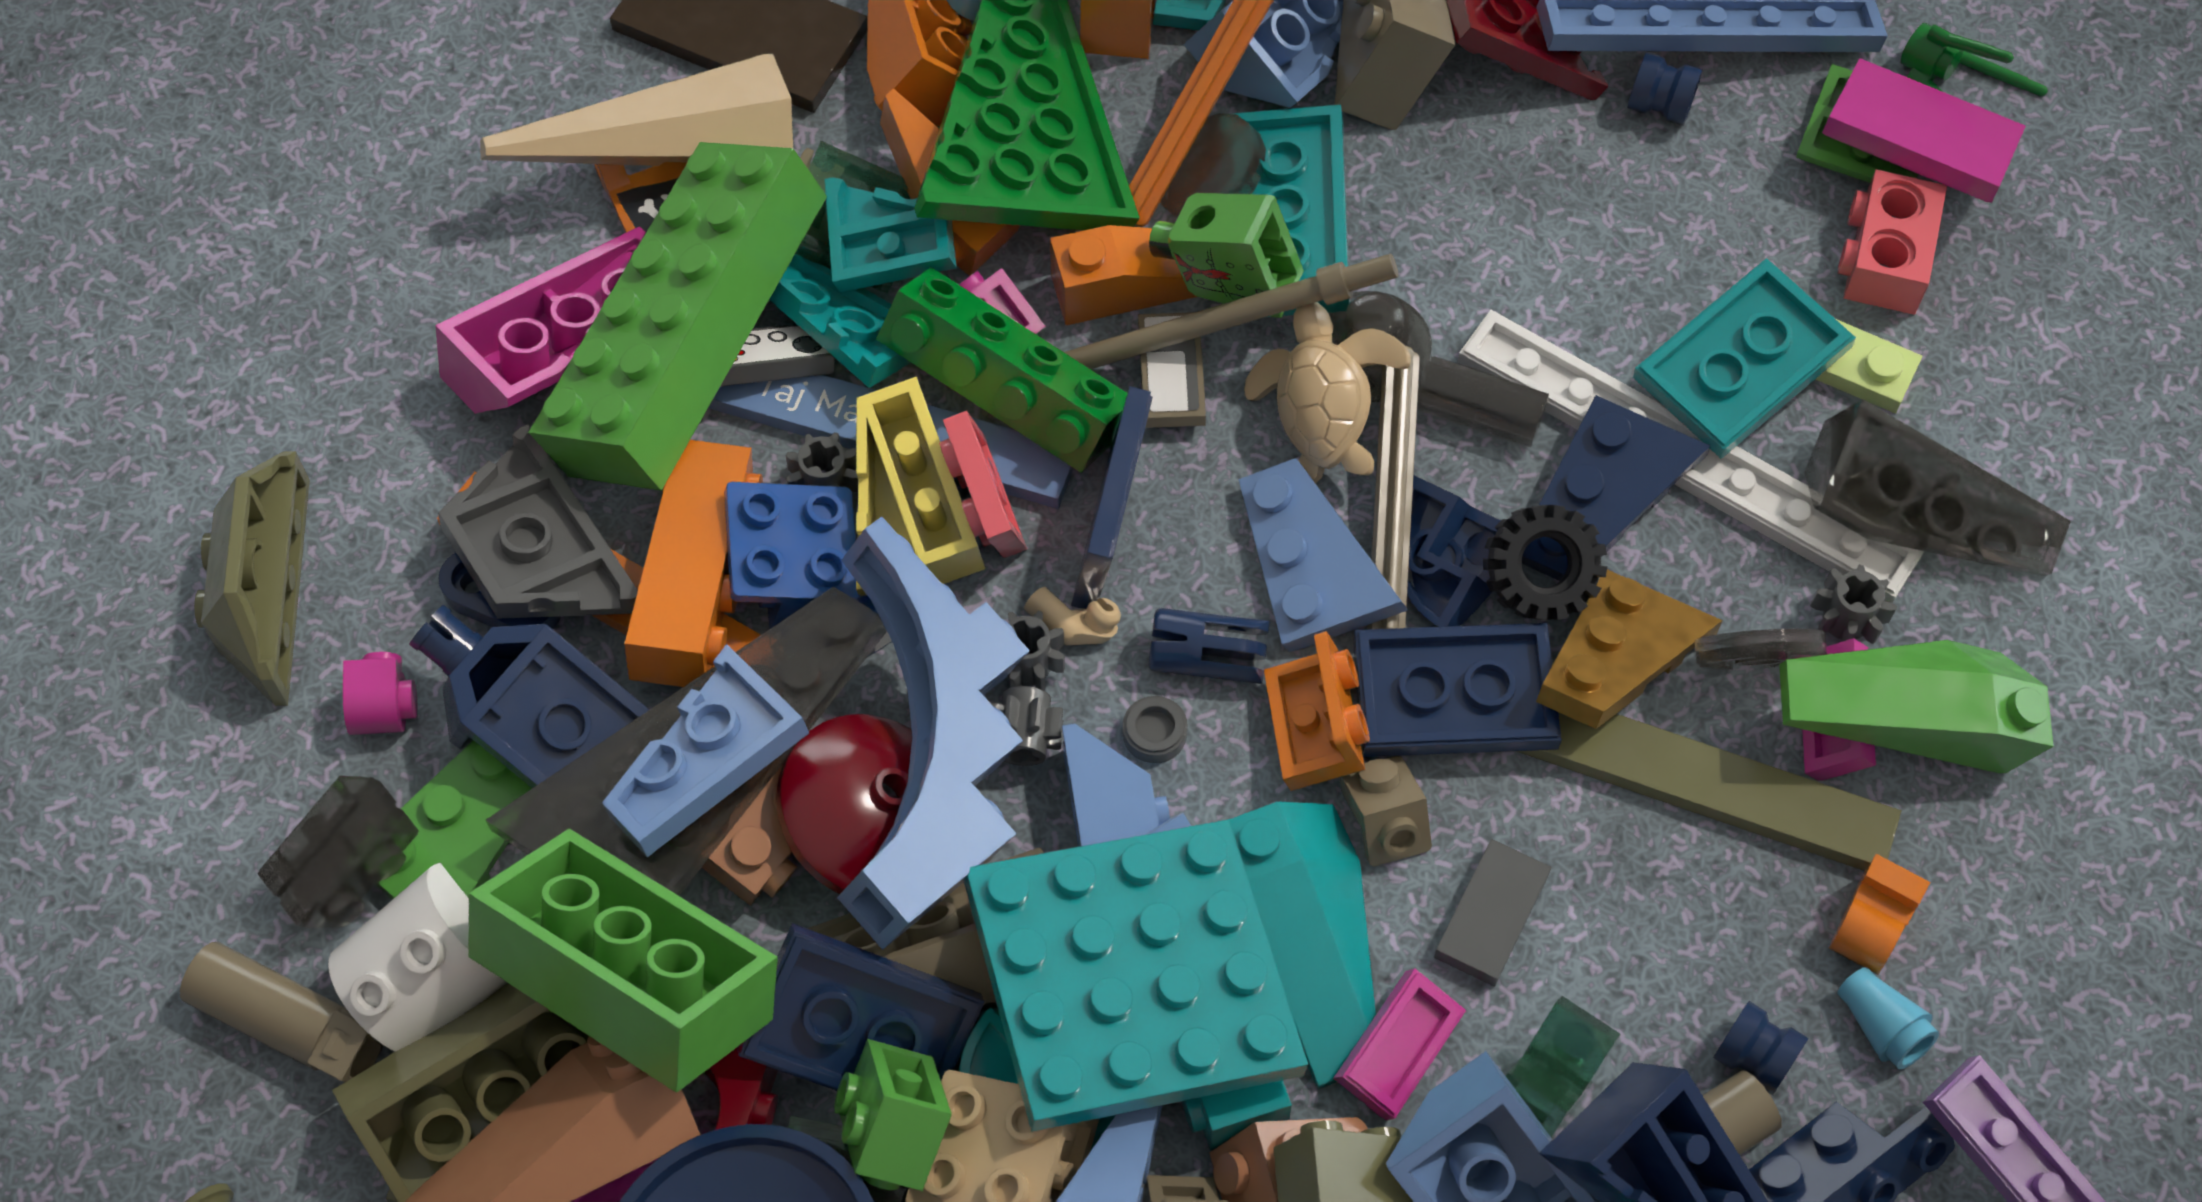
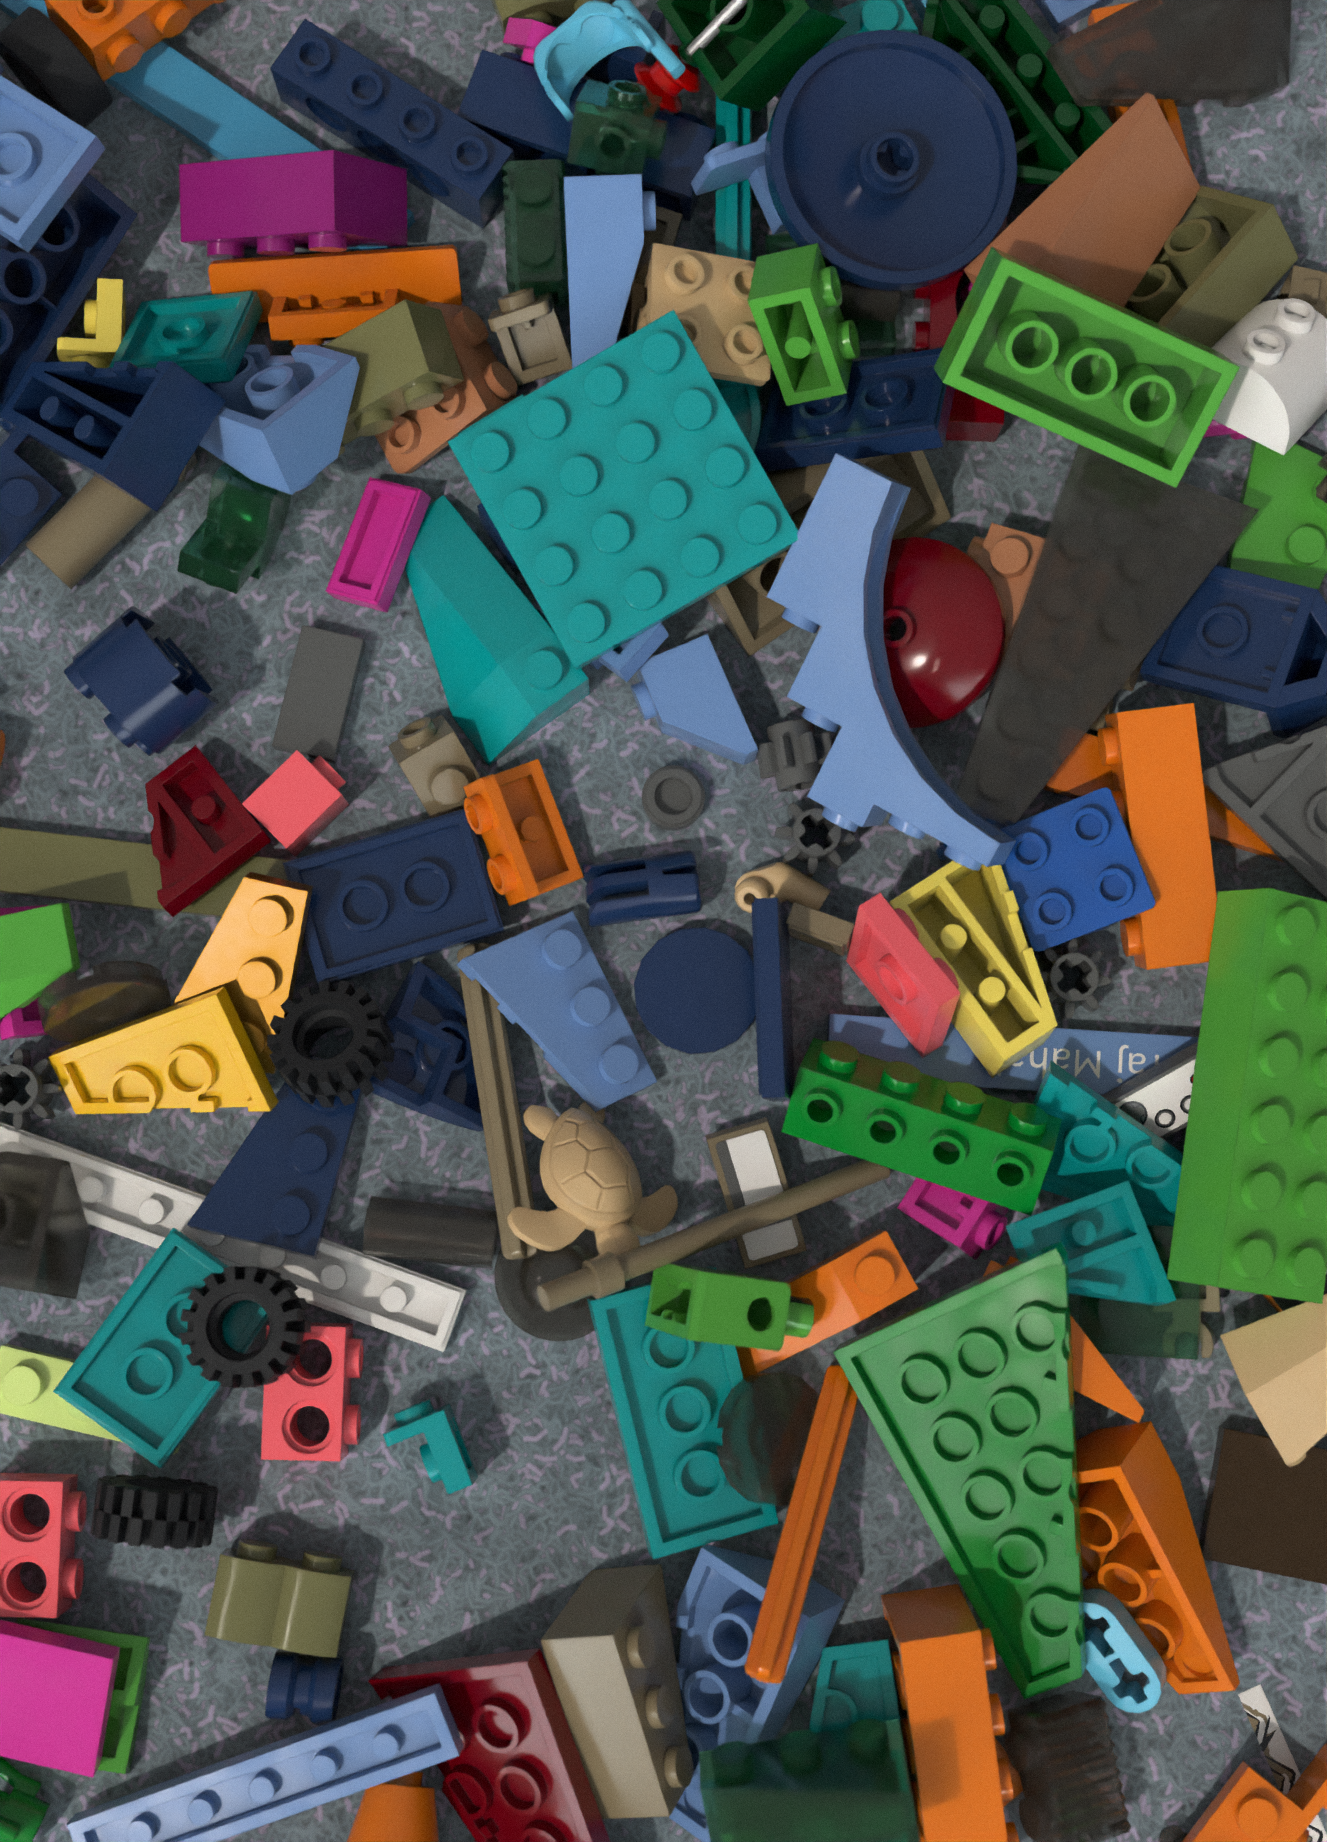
camera: 160 degrees right, 20 degrees up
(709, 752) = (1073, 603): medium blue wing -> none
(1045, 564) = (819, 929): none -> dark tan tile
(1179, 551) = (696, 991): none -> dark blue tile
(1508, 241) = (445, 1453): none -> teal bracket
(1536, 801) = (298, 801): none -> coral brick
(1624, 303) = (327, 1392): none -> coral brick
(1641, 796) = (197, 829): none -> dark red wing
(1675, 153) = (280, 1599): none -> olive brick
(1676, 940) = (142, 683): none -> dark blue brick
(1683, 308) = (206, 1321): none -> black tyre
(1696, 594) = (169, 1059): none -> yellow wing
(1760, 1047) = (53, 615): dark blue wheel -> none
(1778, 226) = (154, 1511): none -> black tyre

